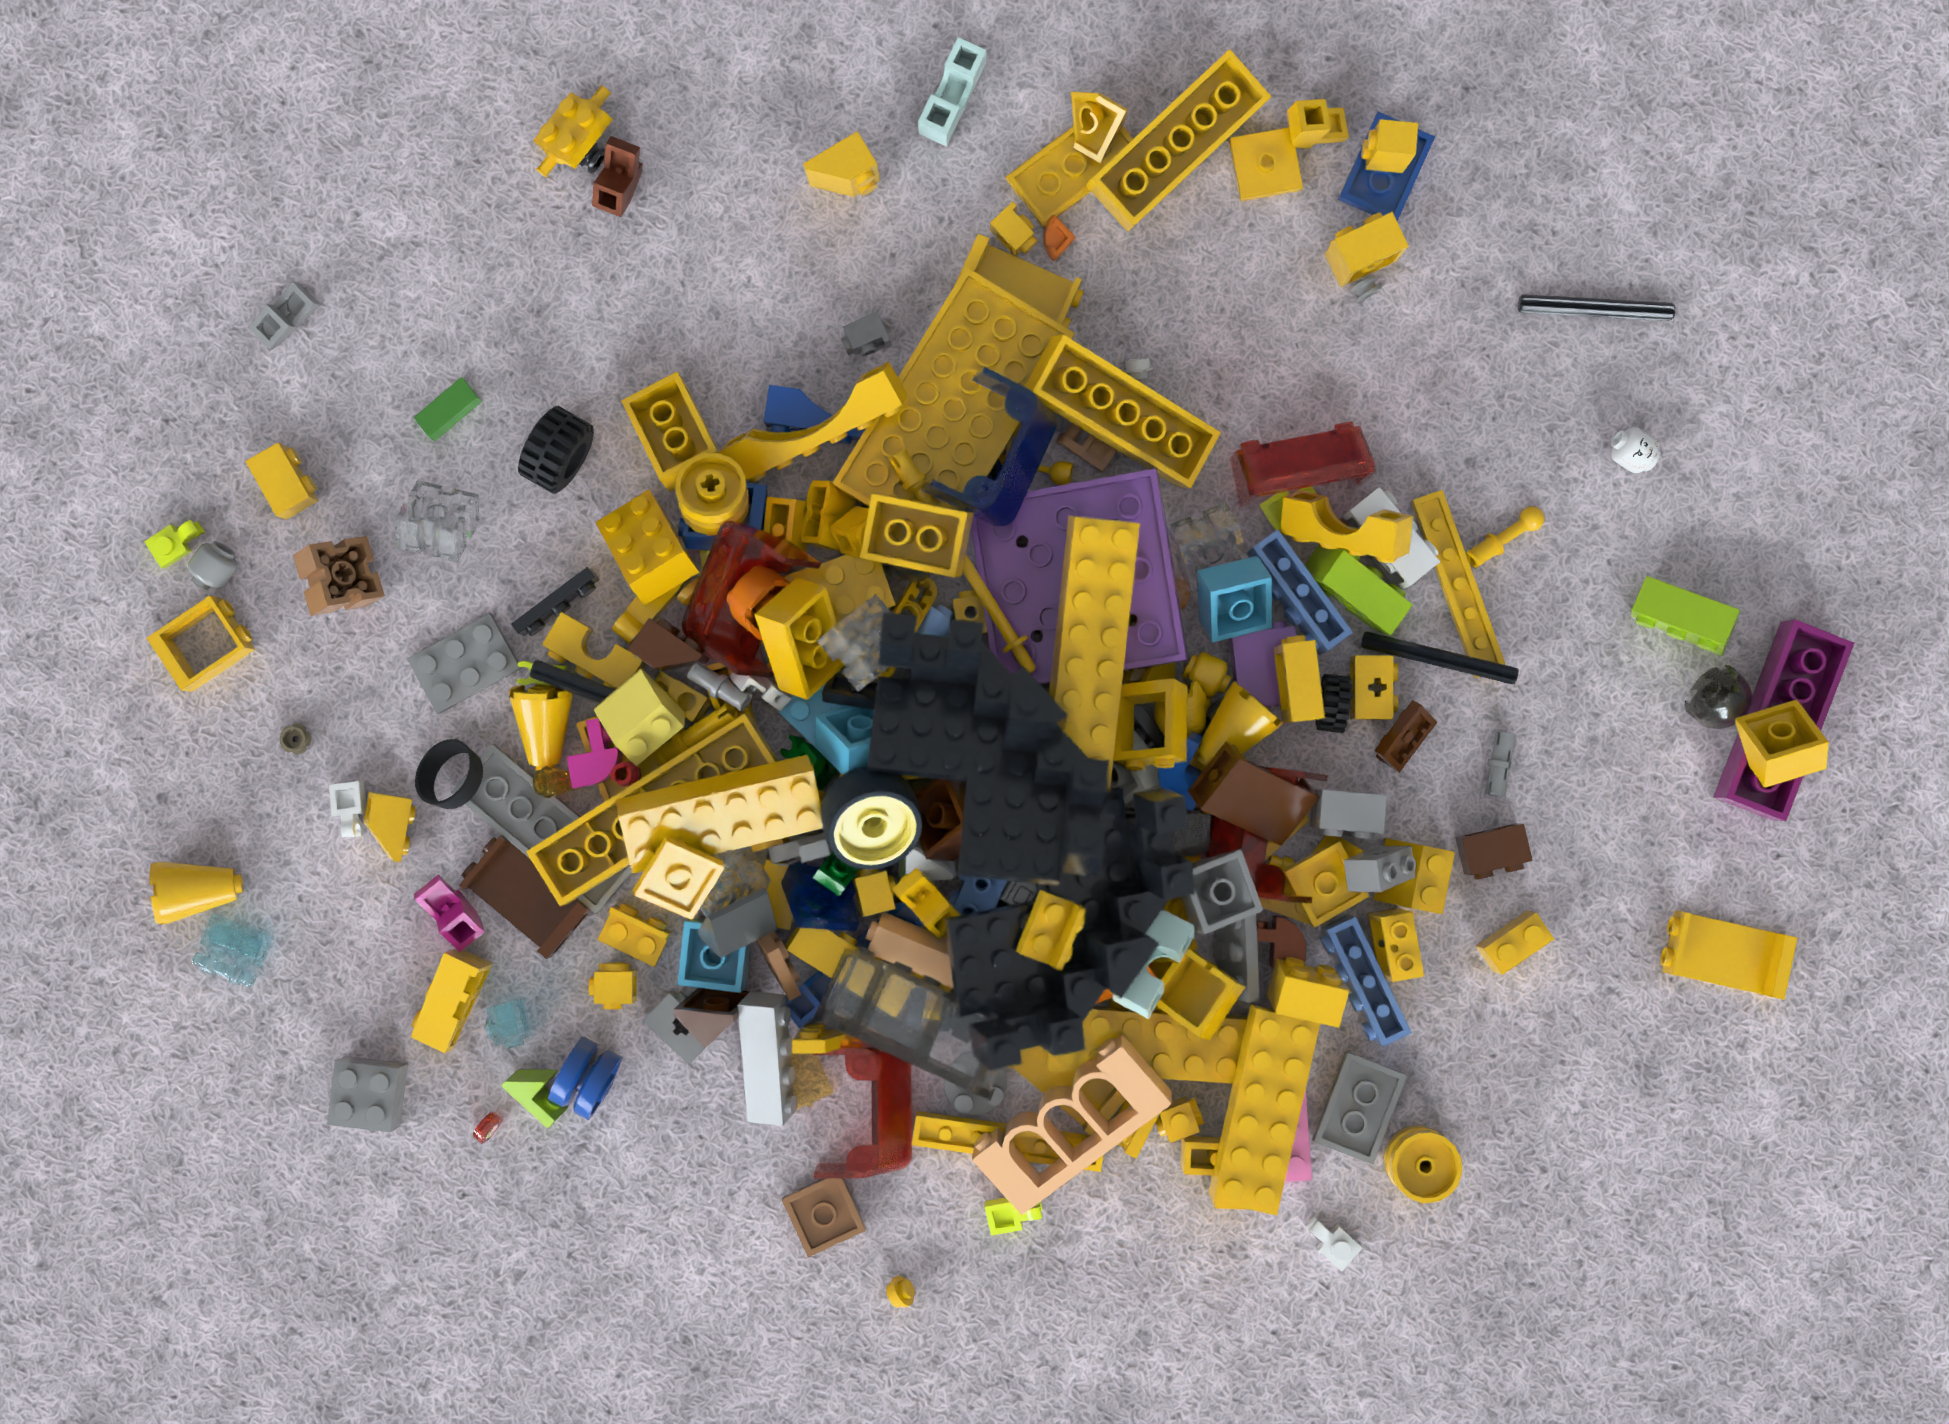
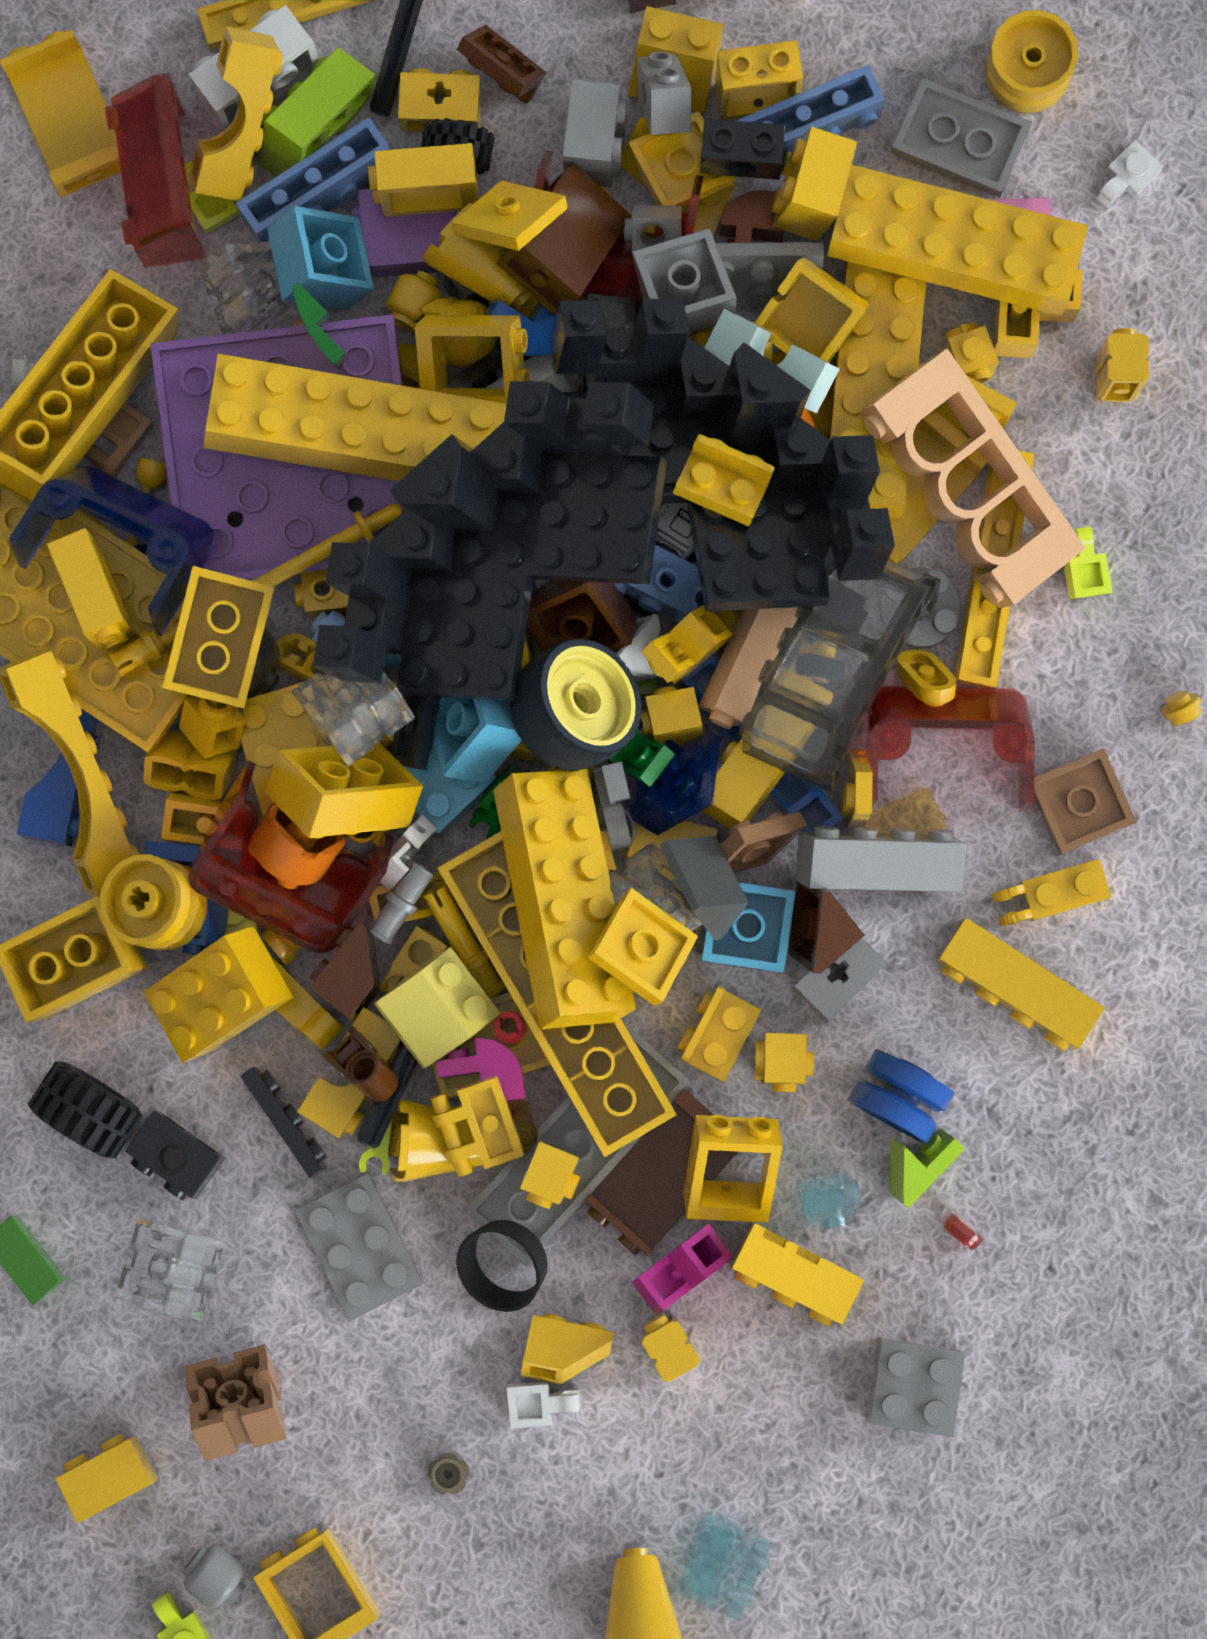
camera: 85 degrees left, 5 degrees down
(388, 905) = (669, 1347): none -> yellow brick
(506, 952) = (725, 1198): none -> yellow window
(513, 810) = (550, 1176): none -> yellow brick
(527, 538) = (198, 1163): none -> black brick
(550, 761) = (489, 1123): none -> yellow plate
(596, 658) = (363, 1066): none -> reddish brown piece
(678, 1167) = (1020, 985): none -> yellow brick
(752, 1194) = (1056, 892): none -> yellow hinge
(915, 1091) = (926, 677): none -> yellow plate
(952, 433) = (92, 590): none -> yellow window
(1172, 1242) = (1122, 366): none -> yellow brick
(1179, 596) = (314, 317): none -> green slope
(1264, 751) = (509, 215): none -> yellow plate
(1277, 870) = (666, 217): none -> light grey brick
(1333, 934) = (742, 149): none -> black brick
(1354, 388) = (64, 111): none -> yellow panel

